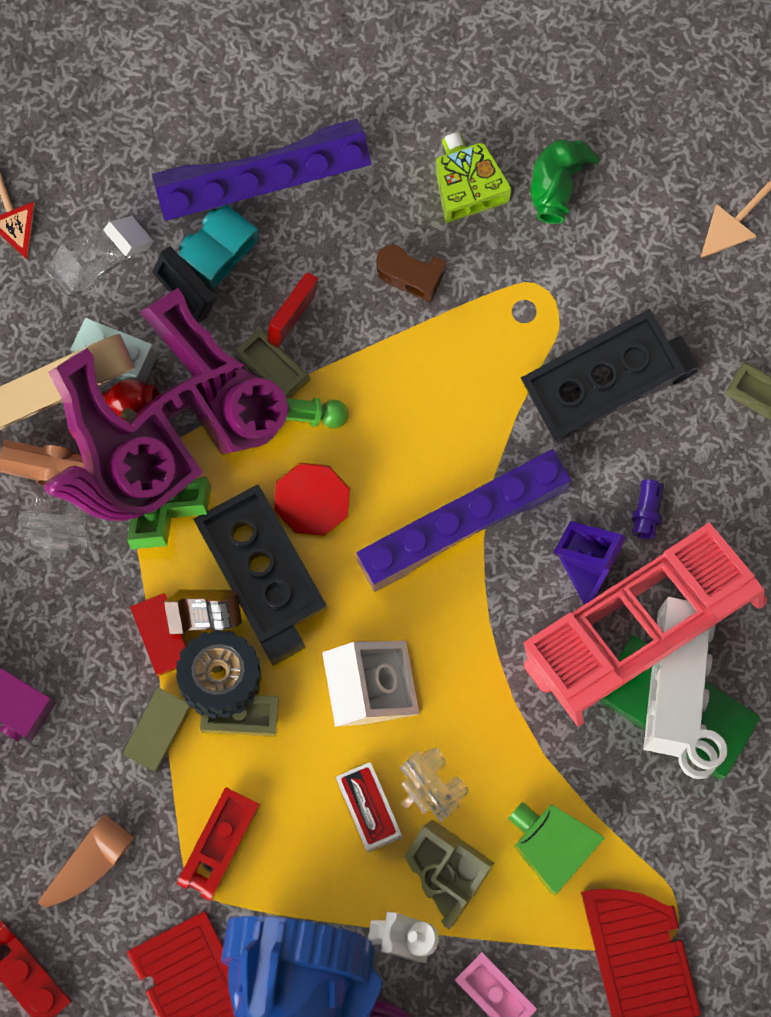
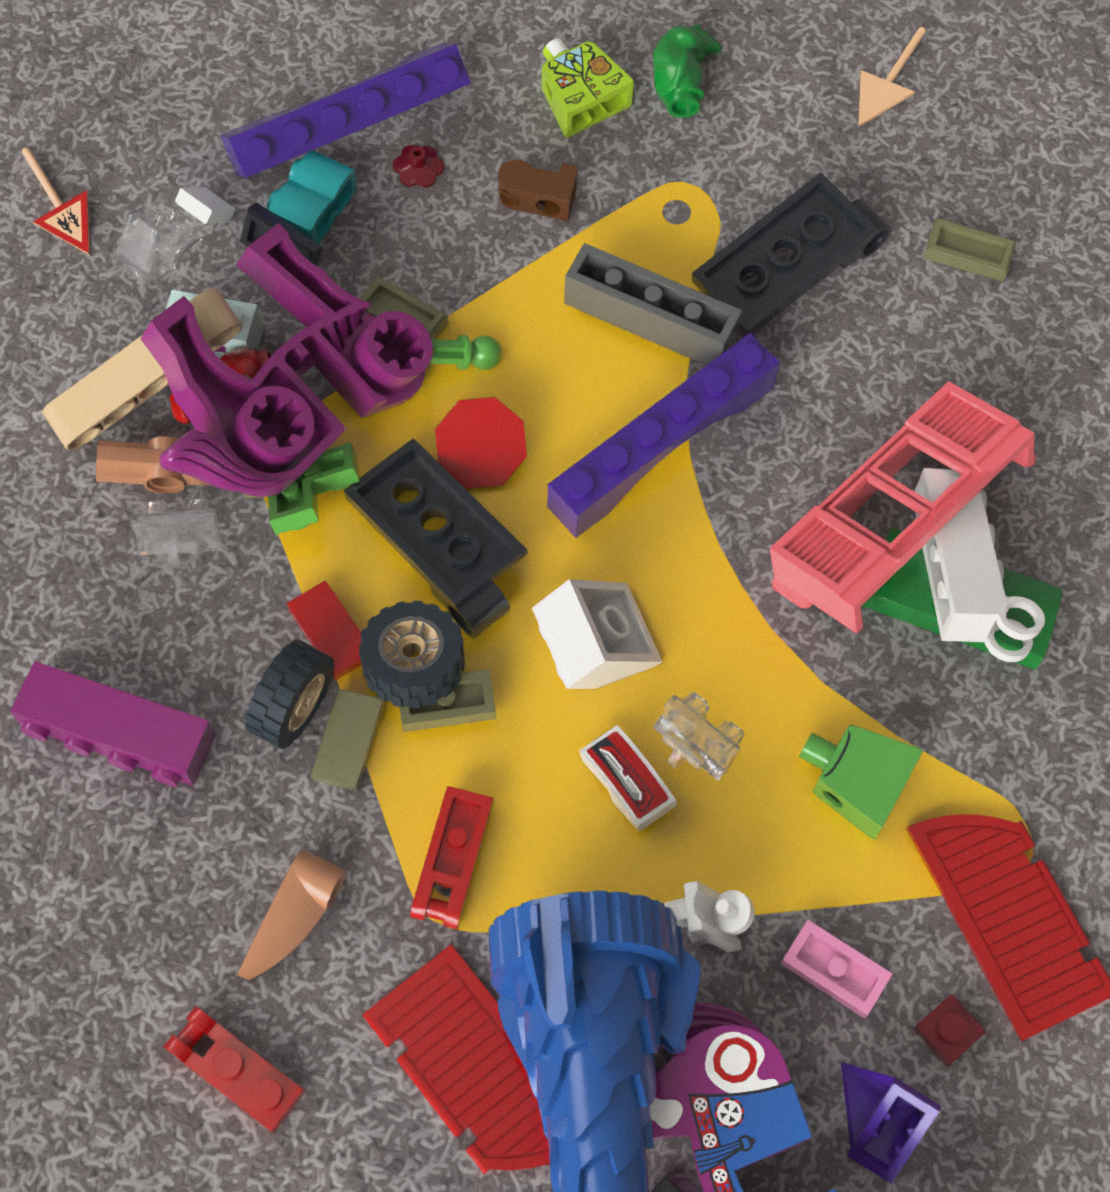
camera: 15 degrees left, 10 degrees down
(116, 689) = (289, 694): none -> black wheel
(202, 610) = (377, 585): reddish brown leg -> none
(292, 309) = (412, 247): red tile -> none
(317, 233) = (418, 166): none -> dark red plant
(448, 869) = (740, 833): olive slope -> none
(478, 403) = (650, 305): none -> dark grey brick
(588, 556) = (818, 448): dark purple slope -> none
(647, 512) = (872, 392): dark purple pin -> none

